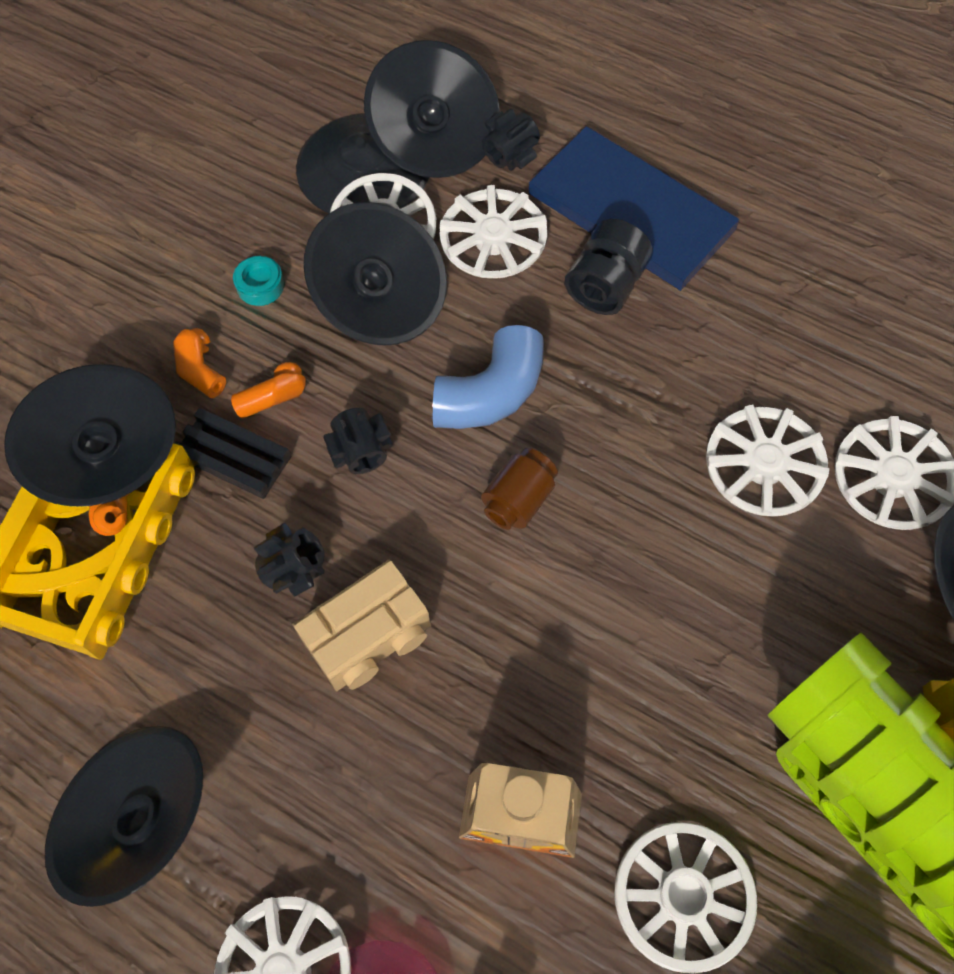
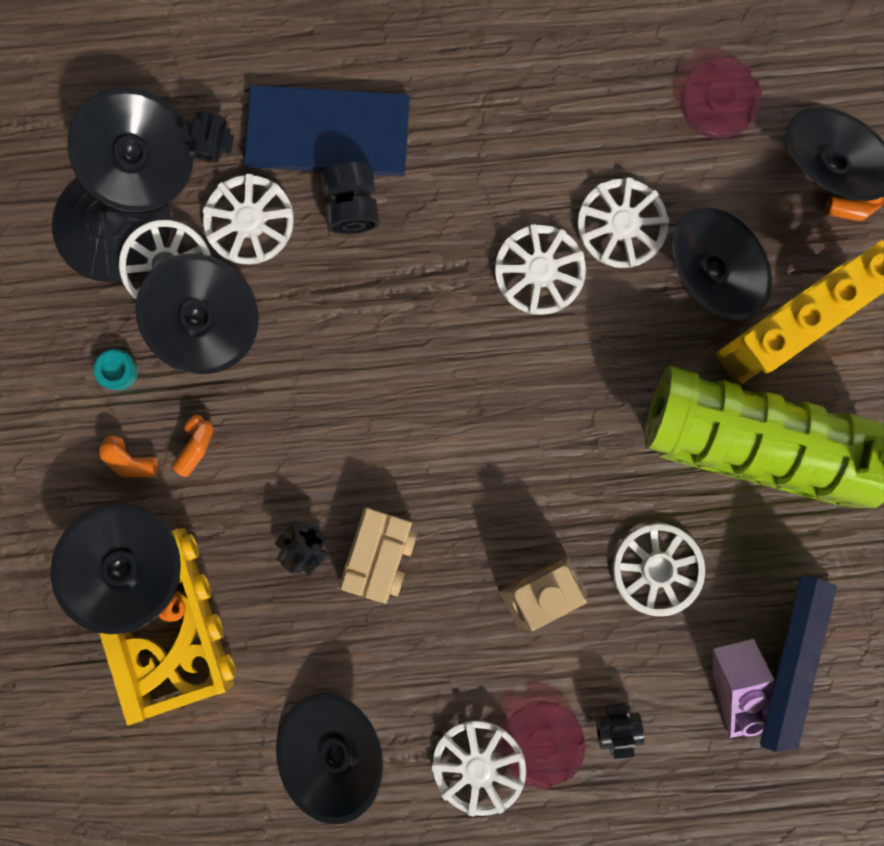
camera: 40 degrees left, 20 degrees up
(197, 434) = (168, 509): black tile -> none
(358, 440) = (281, 441): black gear -> none
(497, 389) = (342, 340): medium blue cylinder -> none
(519, 489) = (405, 400): reddish brown brick -> none

